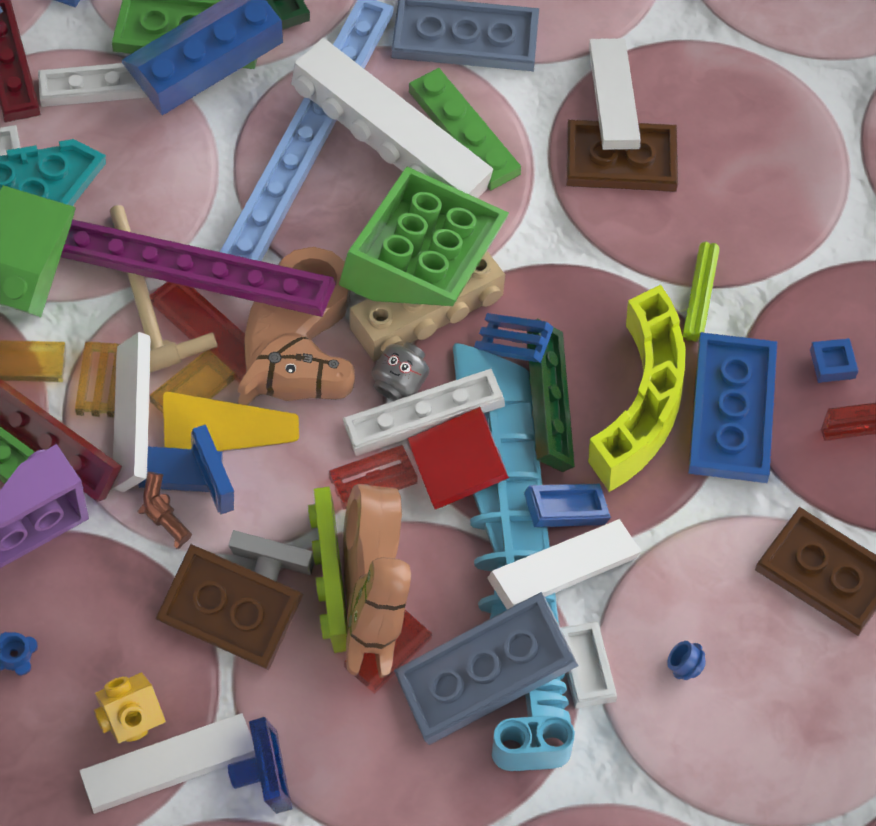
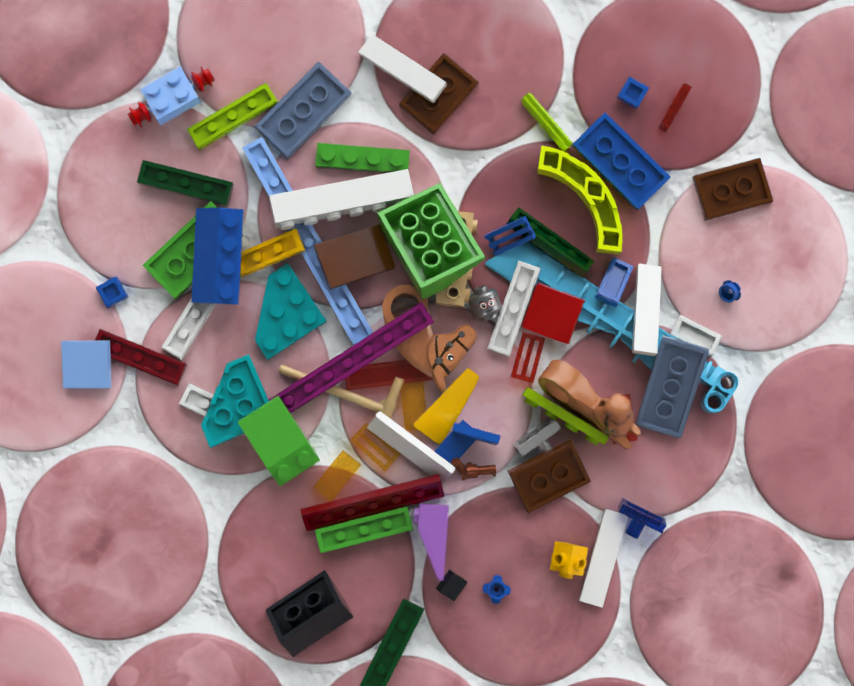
camera: 50 degrees left, 25 degrees up
(194, 172) = (285, 313): none -> teal plate
(257, 102) = (271, 252): none -> yellow tile
(327, 188) = (354, 256): none -> reddish brown tile

